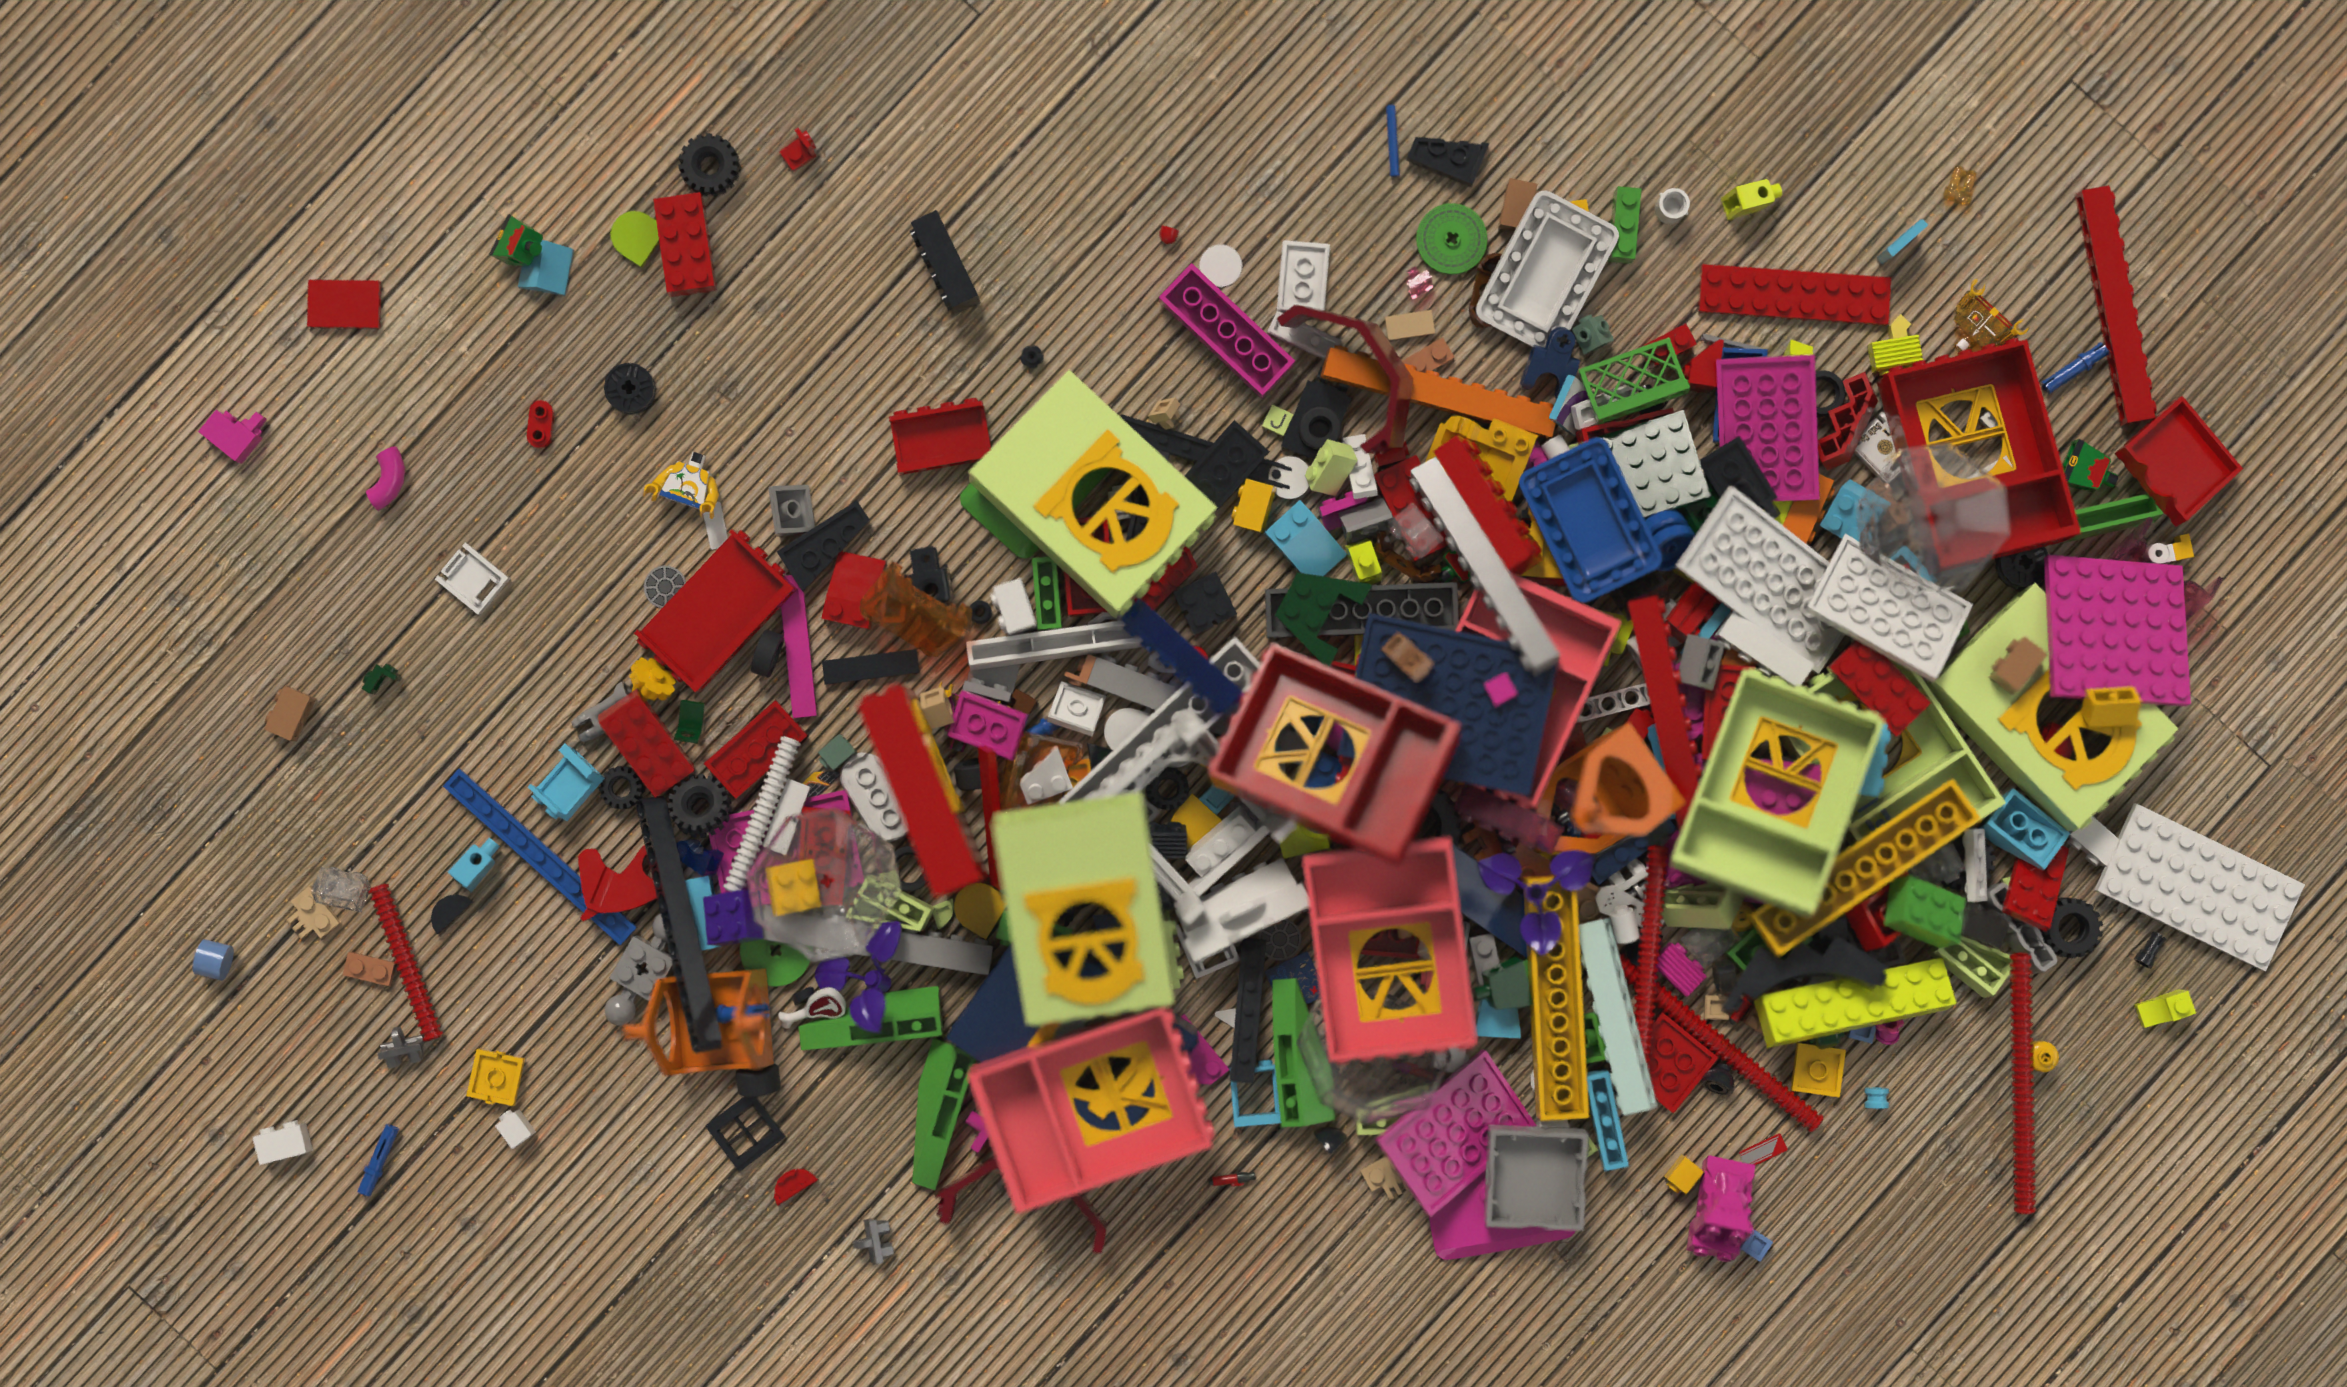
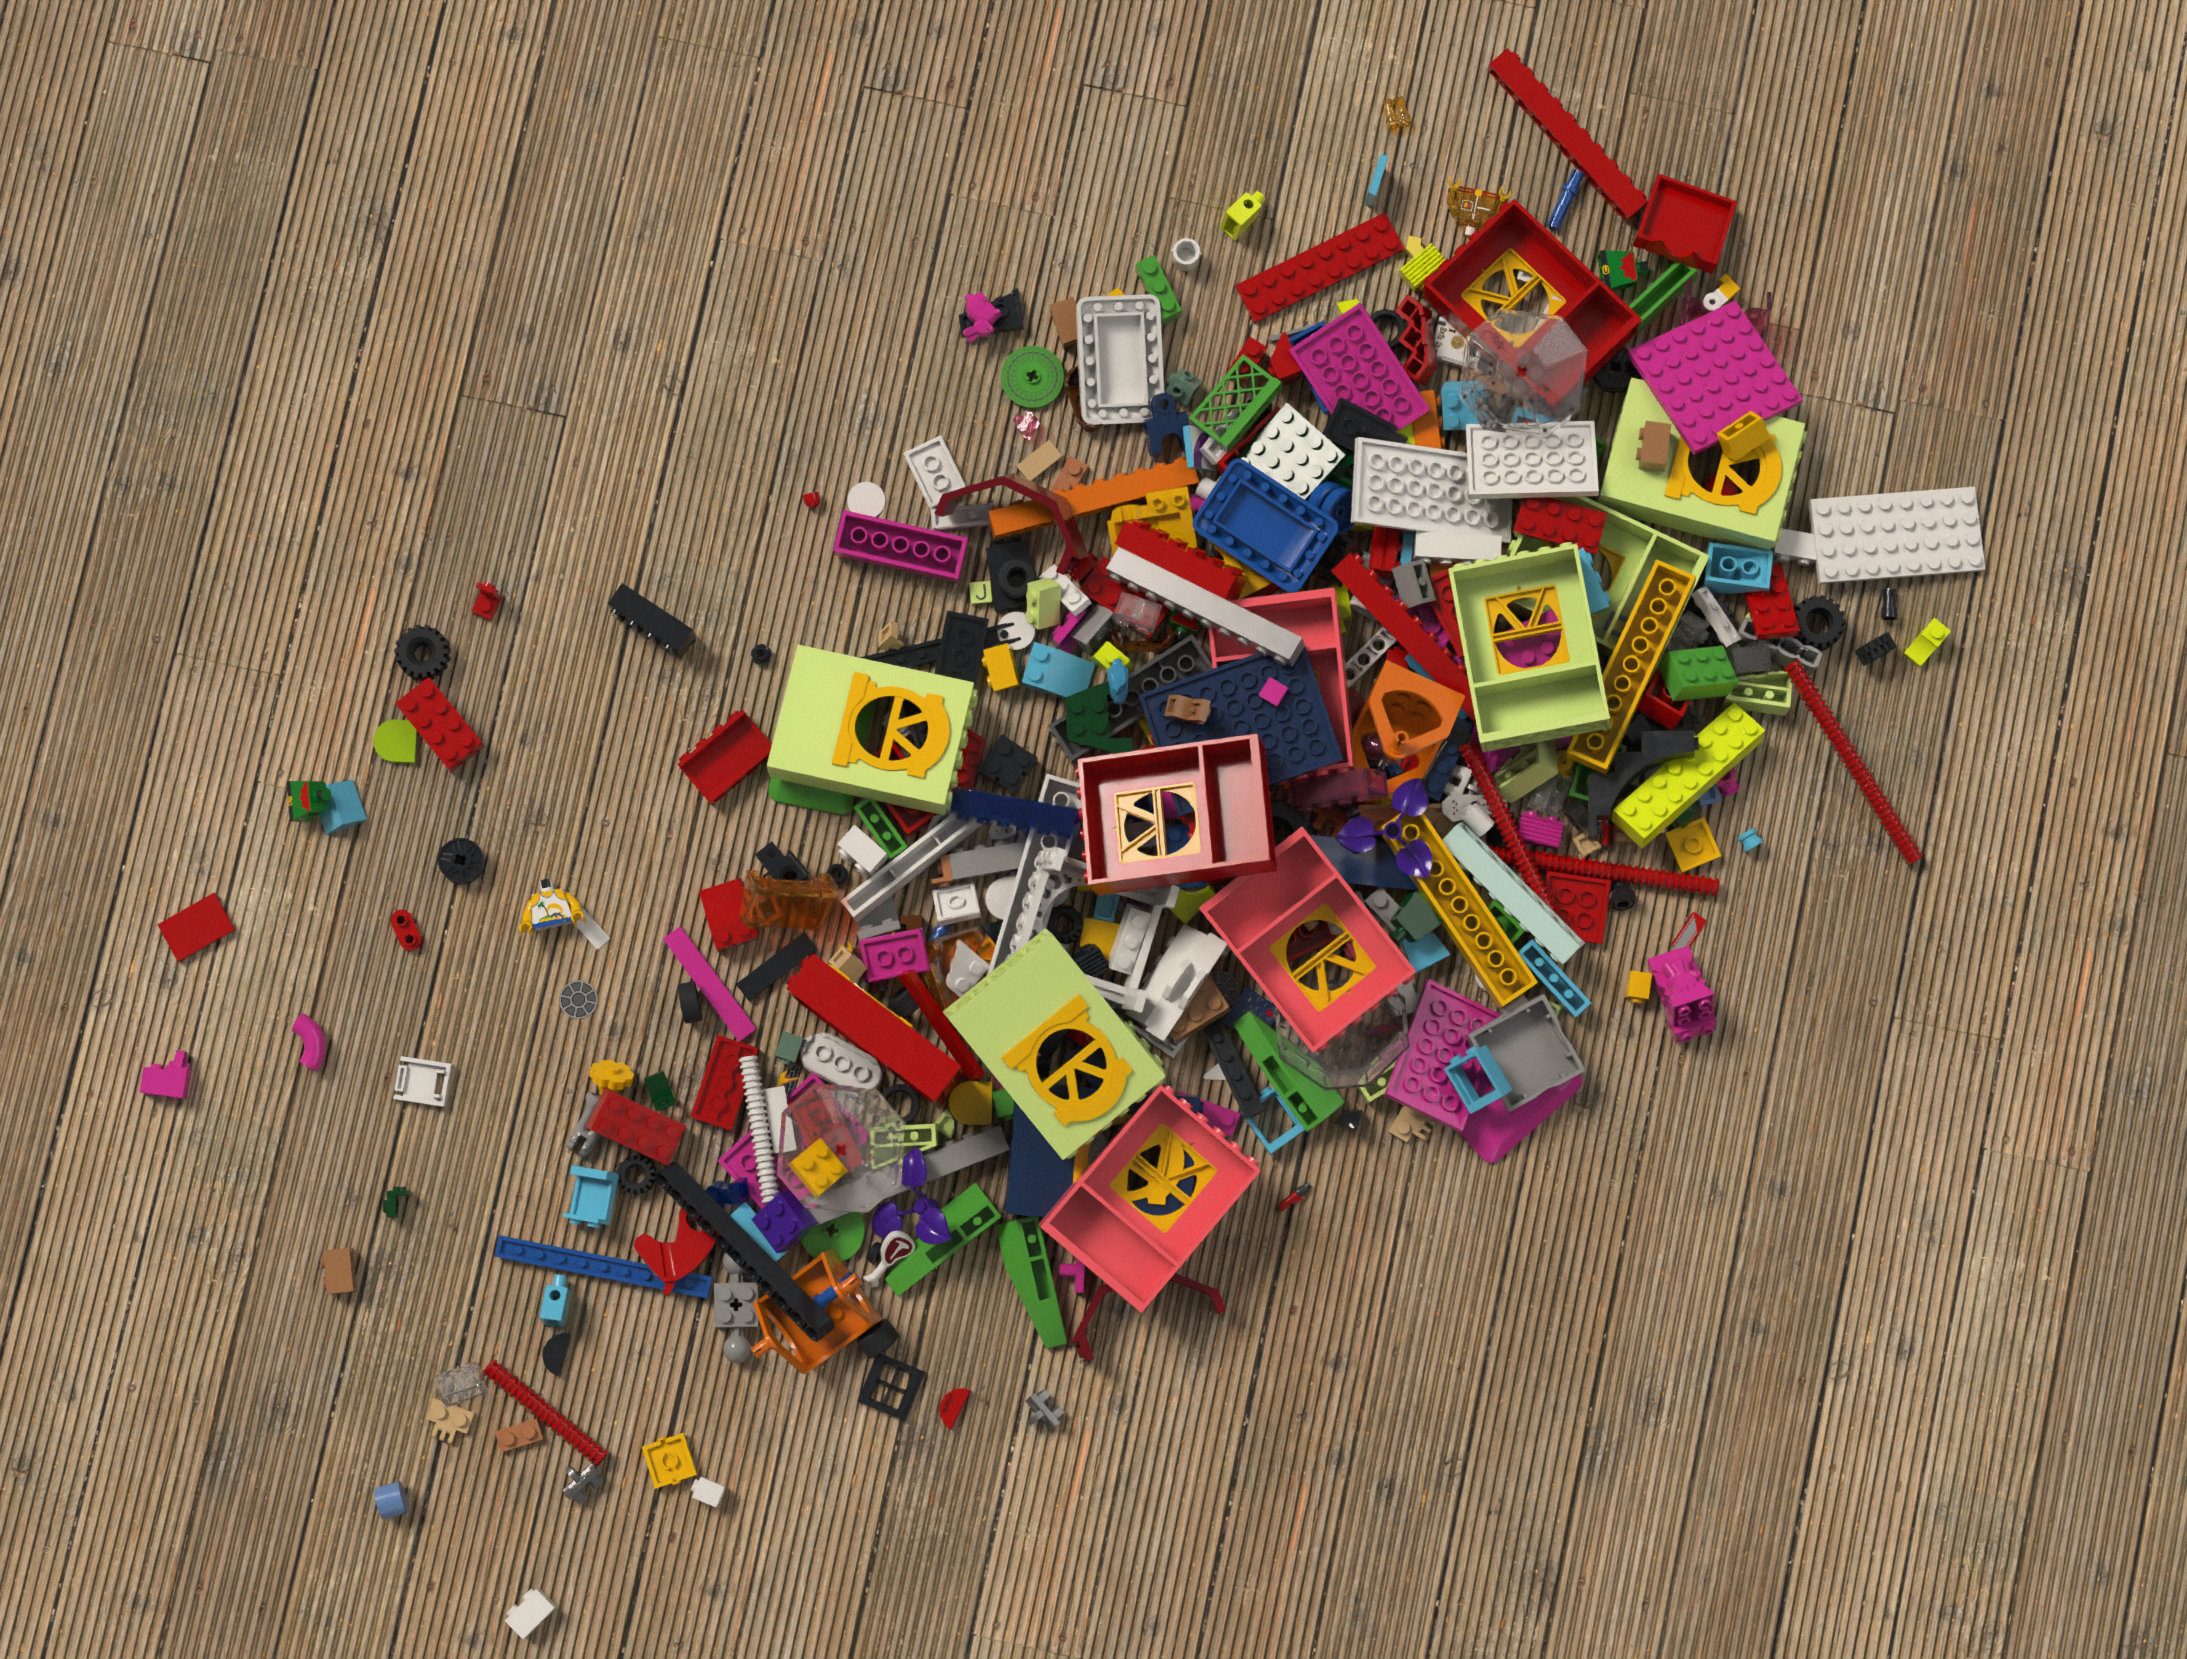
camera: 30 degrees left, 5 degrees down
(374, 1169) = (614, 1584): blue pin -> none
(695, 790) = (696, 1141): black tyre -> none
(716, 611) = (631, 993): red panel -> none
(791, 509) = (643, 880): light grey slope -> none
(818, 547) = (681, 898): black wing -> none
(1251, 952) = (1202, 1010): none -> medium nougat brick
(1357, 588) = (1118, 682): none -> dark azure animal
(1392, 140) = (942, 329): blue piece -> none
(1438, 149) = (982, 314): none -> dark pink animal
(1457, 1177) = (1463, 1084): none -> medium azure window
(1756, 1245) = (1726, 1007): medium blue plate -> none
(2049, 1056) = (1860, 728): yellow head -> none
(2111, 986) = (1875, 648): none -> black tyre

